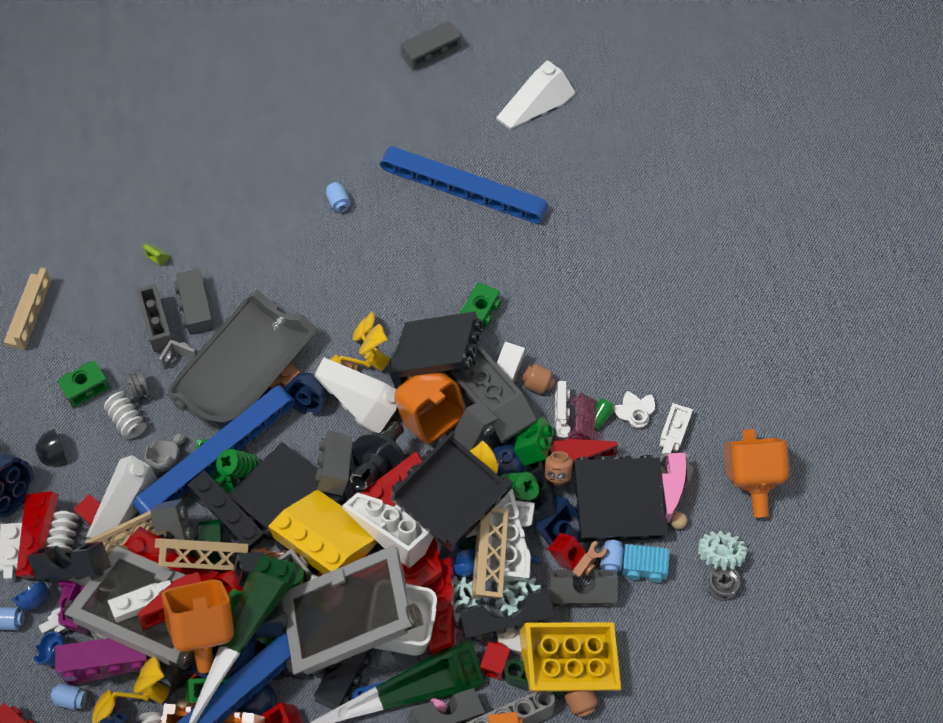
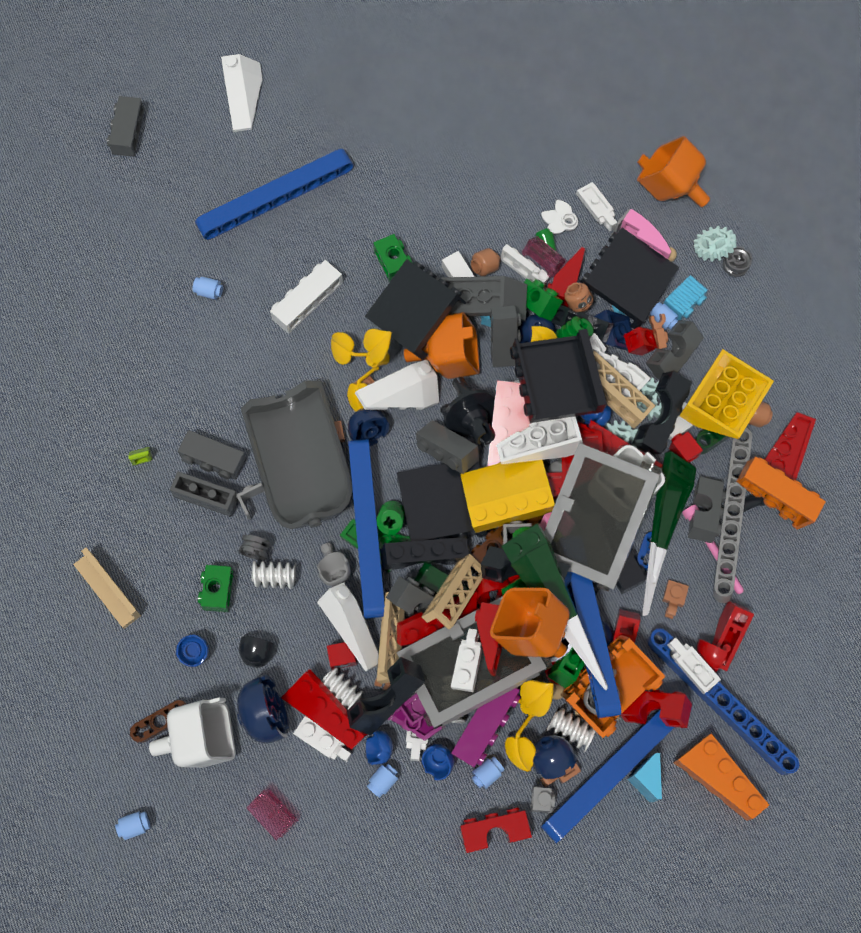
camera: 55 degrees left, 10 degrees up
(18, 403) = (192, 650): none -> blue hair
(389, 270) = (306, 296): none -> white brick

